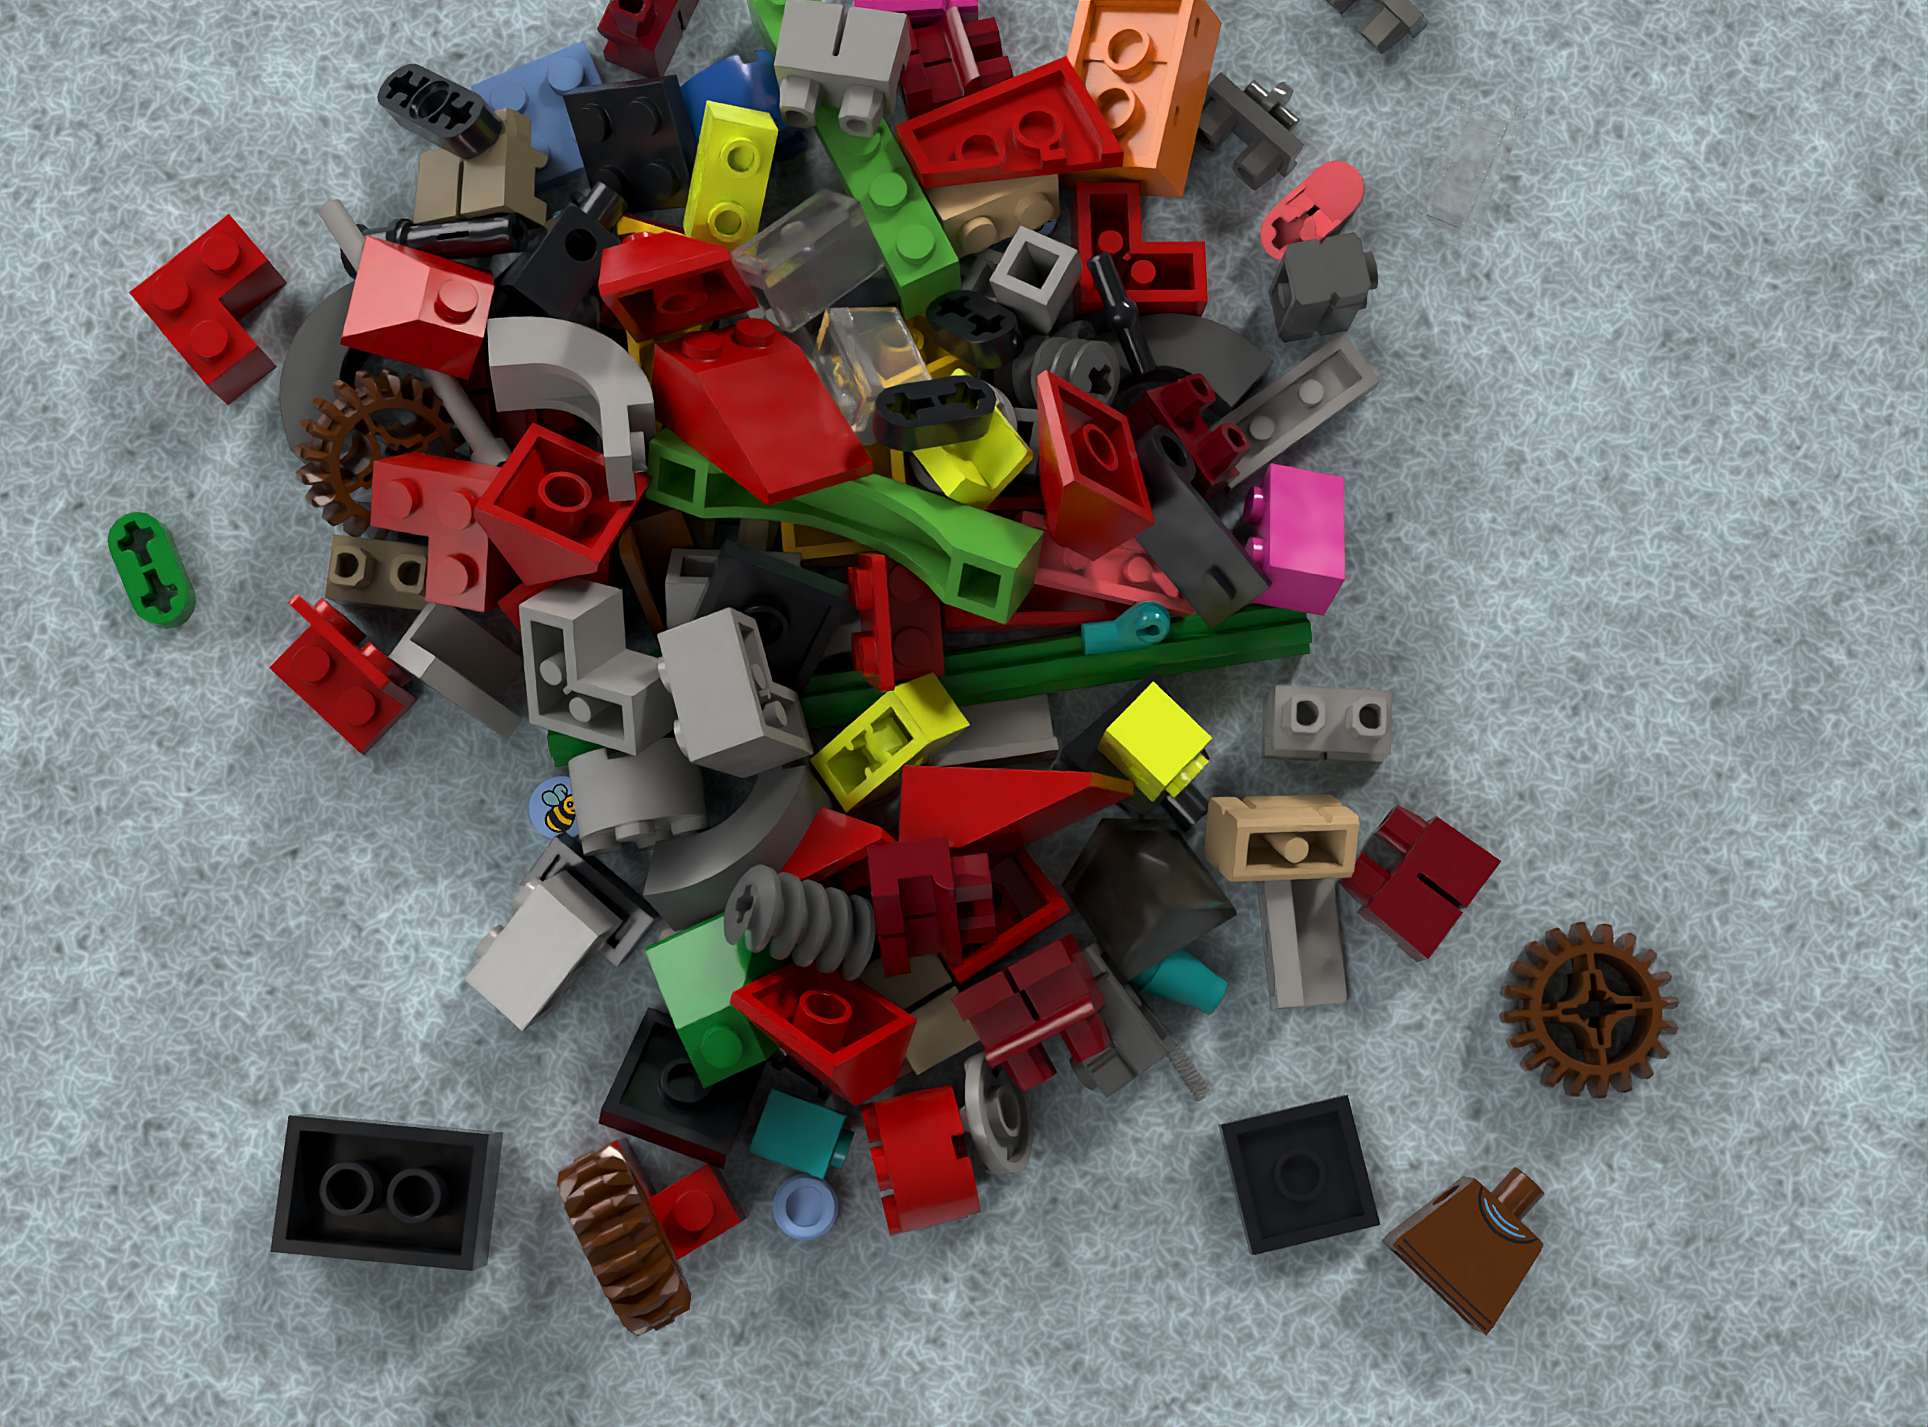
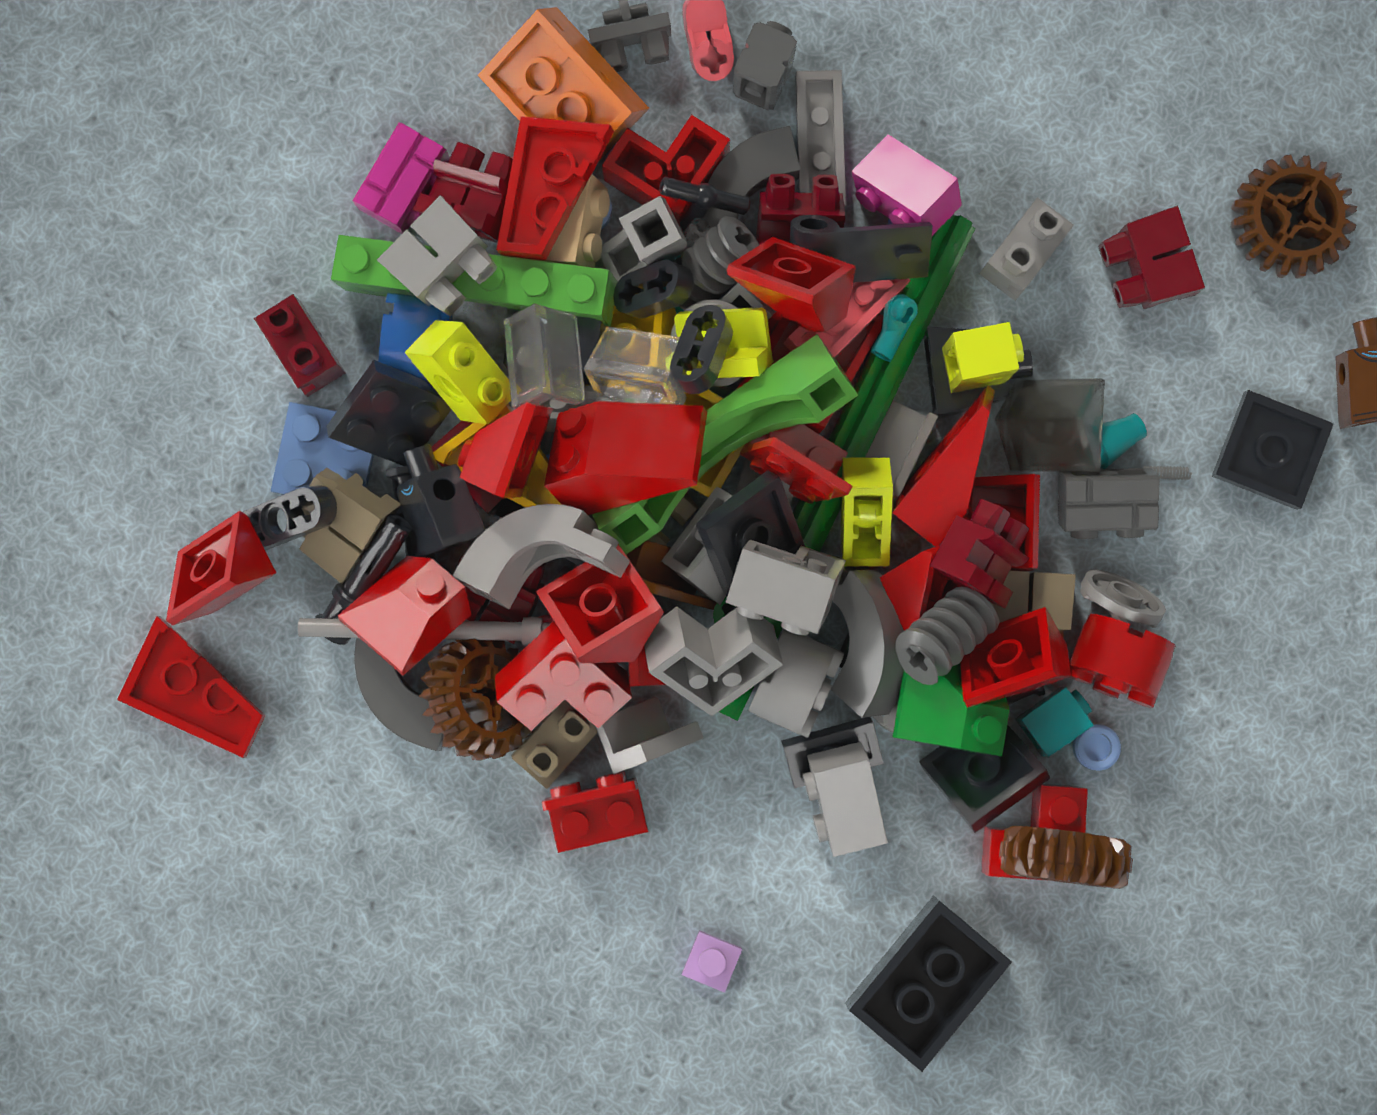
camera: 55 degrees left, 5 degrees up
(138, 576) = (443, 896): green beam -> none
(186, 146) = (189, 692): none -> red wing
(202, 299) = (298, 747): red brick -> none
(258, 927) = (711, 961): none -> lavender plate
(336, 85) = (217, 569): none -> red slope
(553, 808) = (762, 736): tile -> none
(1031, 1002) = (1080, 532): dark red hips -> none
(1281, 837) = (1076, 322): tan brick -> none
(1301, 942) = (1140, 354): light grey panel -> none

